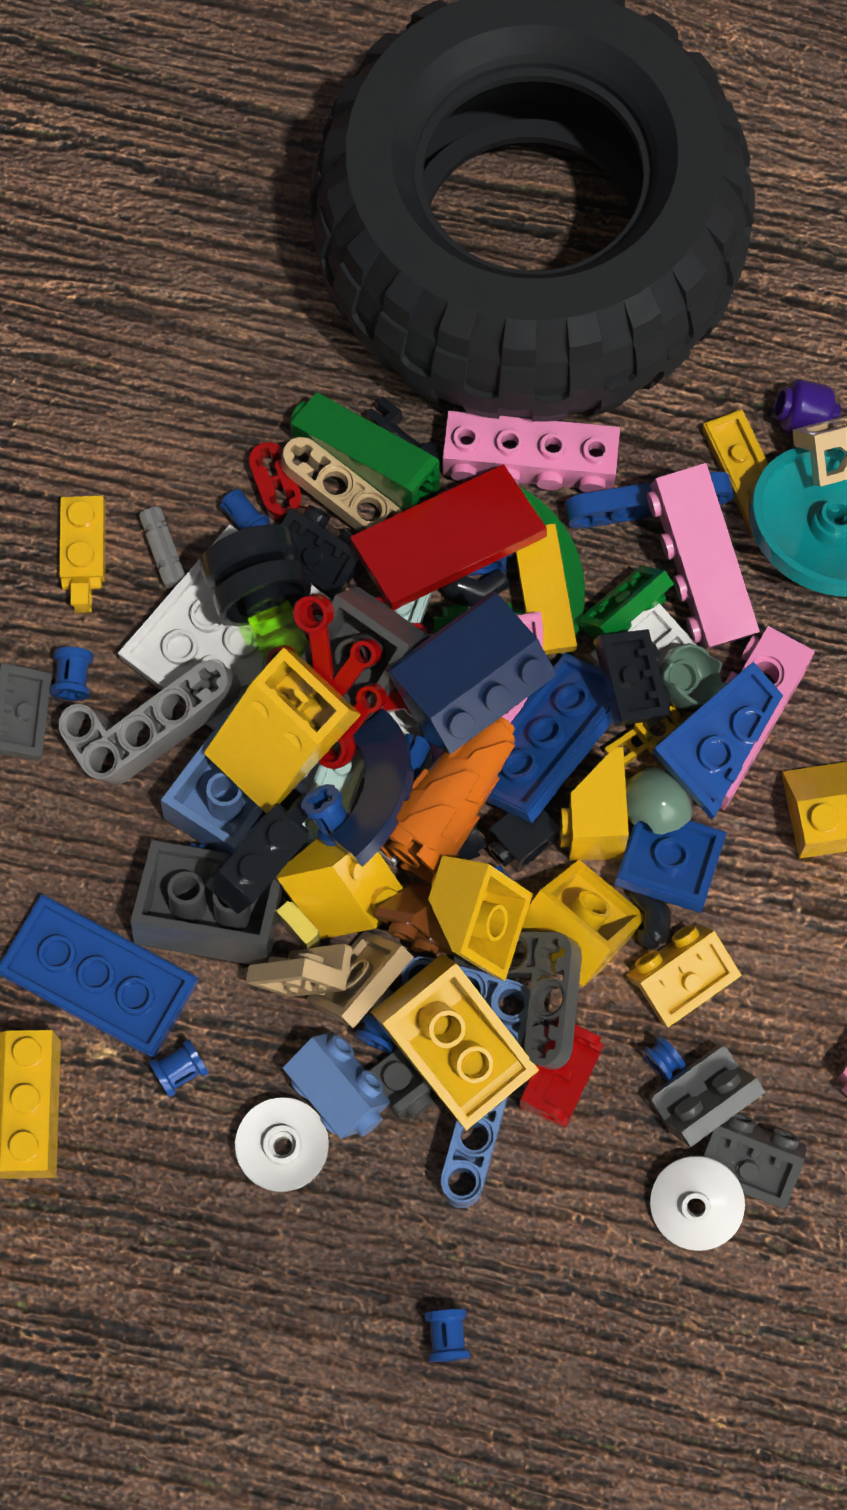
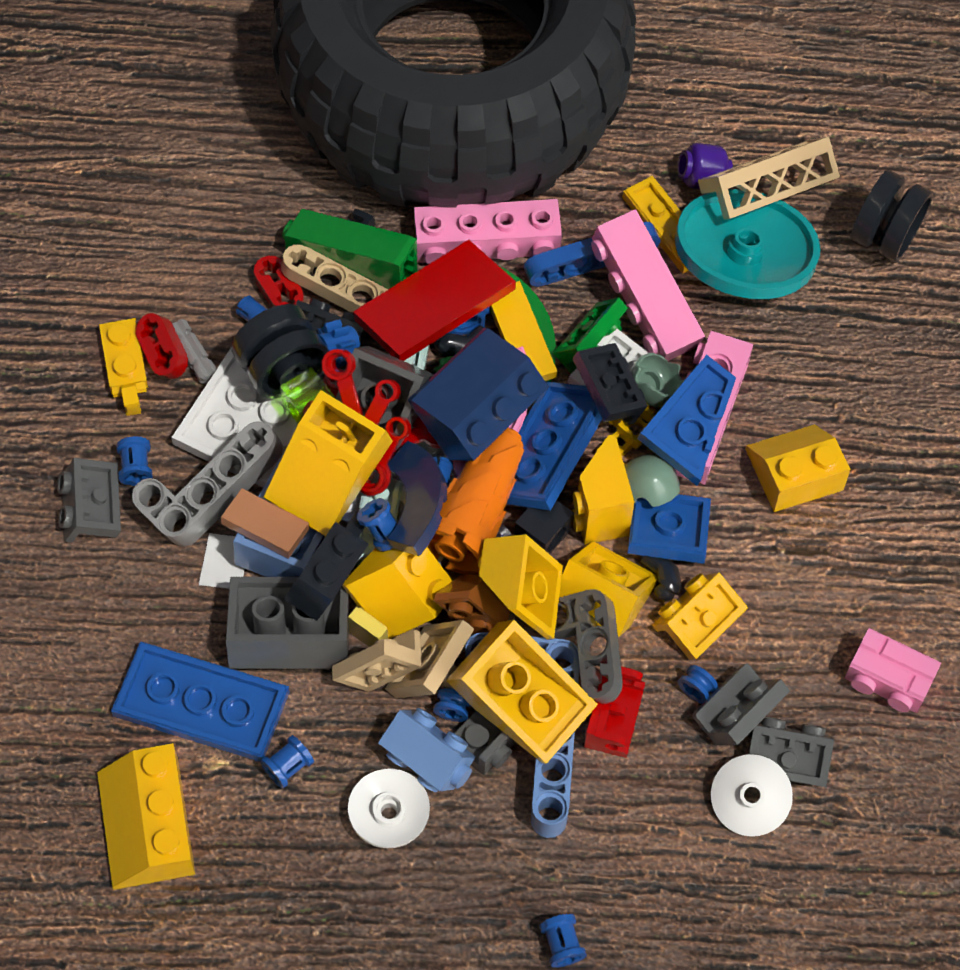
camera: 15 degrees left, 10 degrees down
(128, 535) = (156, 349): none -> red beam
(145, 814) = (219, 562): none -> white sticker
(199, 786) = (265, 523): none -> nougat tile
(327, 570) = (339, 337): none -> blue gear

